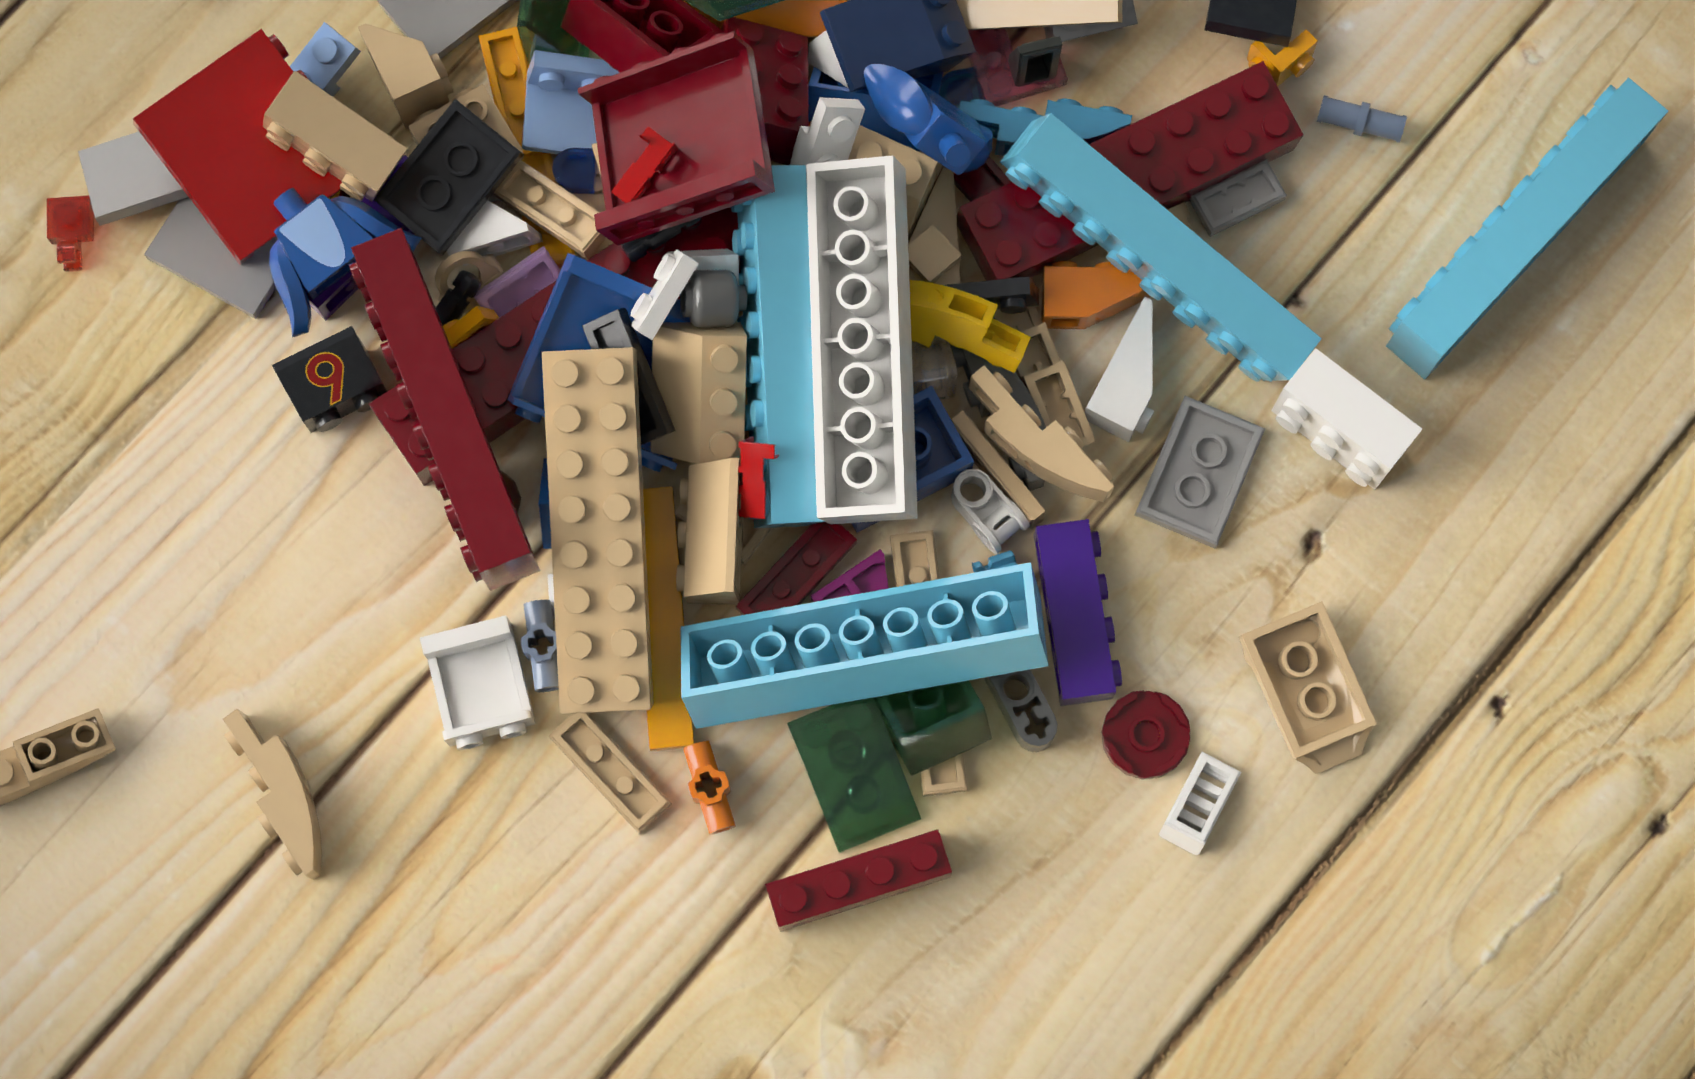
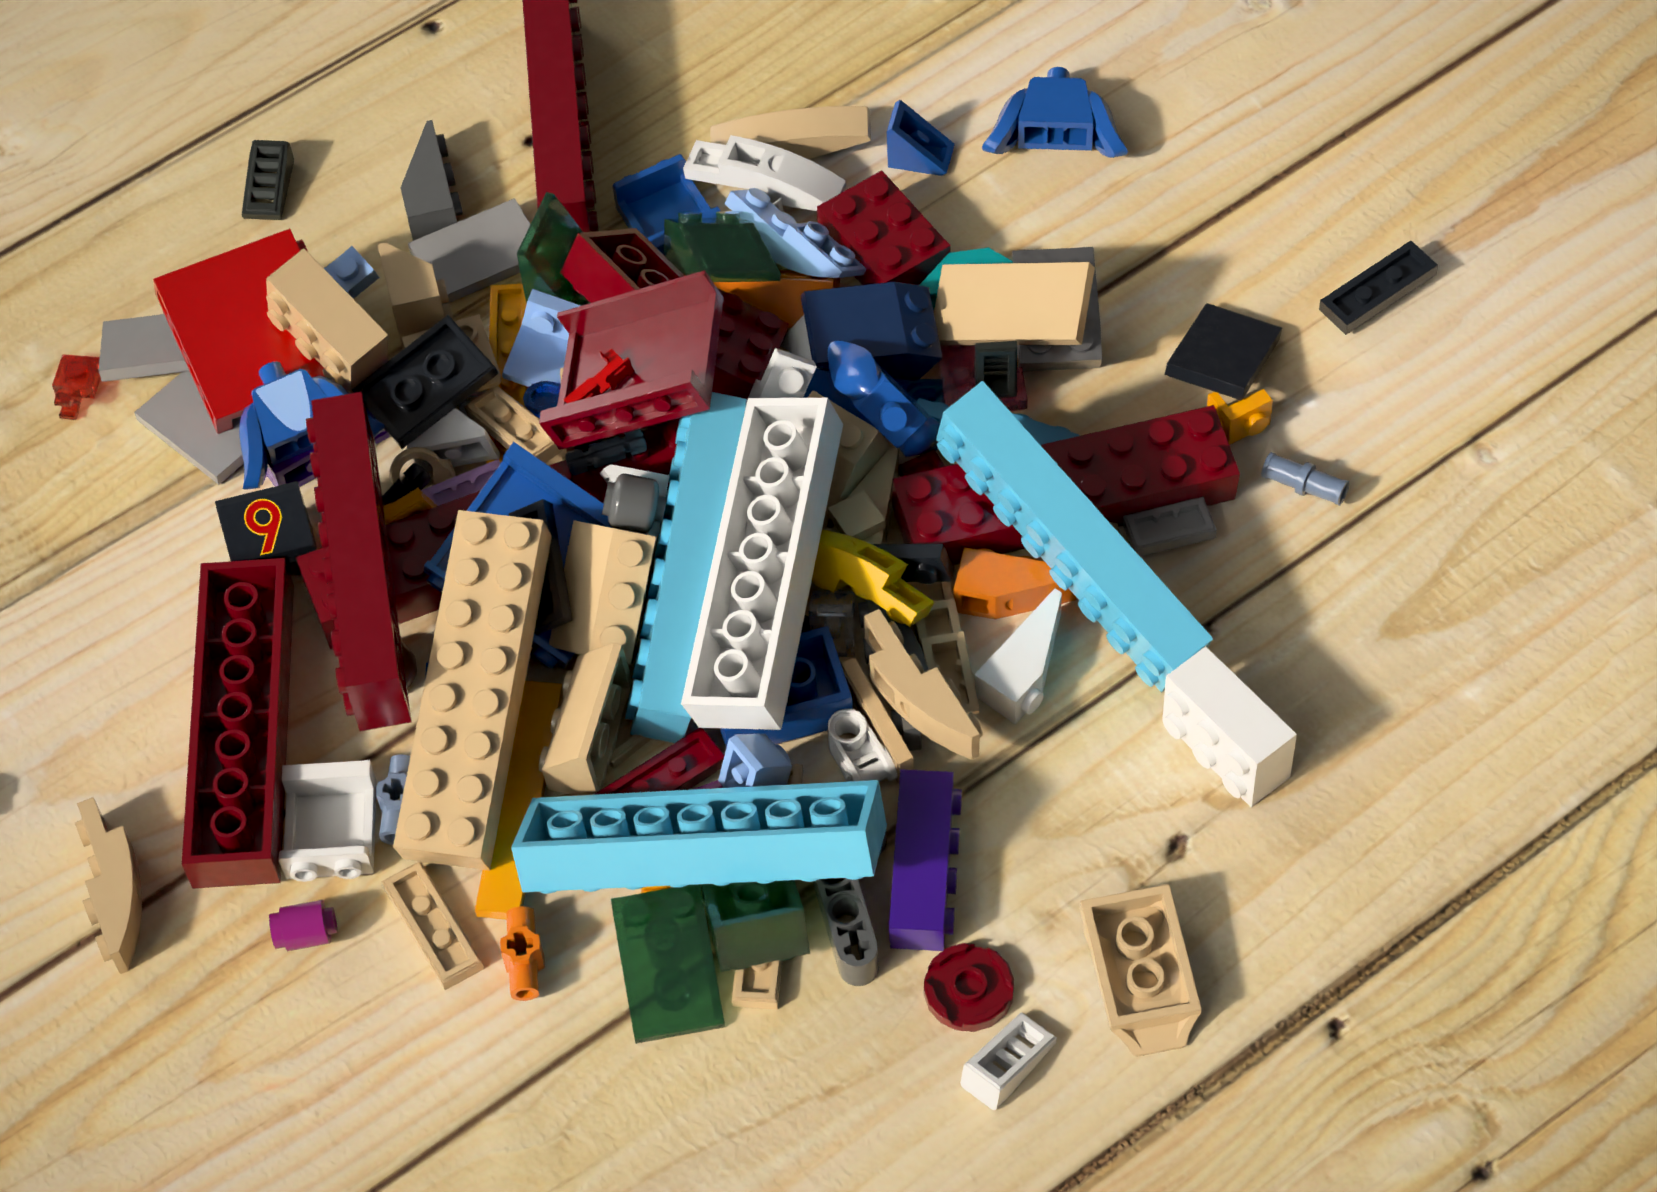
camera: 15 degrees right, 20 degrees down
(359, 594) = (238, 724): none -> dark red brick
(484, 800) = (302, 925): none -> magenta brick
(653, 308) = (574, 501): white plate -> none
(754, 487) = (629, 672): red piece -> none
(859, 880) = (644, 1063): dark red brick -> none
(896, 556) = (754, 762): none -> light blue slope
(1200, 472) = (1078, 760): light grey tile -> none
(1523, 226) = (1441, 590): medium azure brick -> none

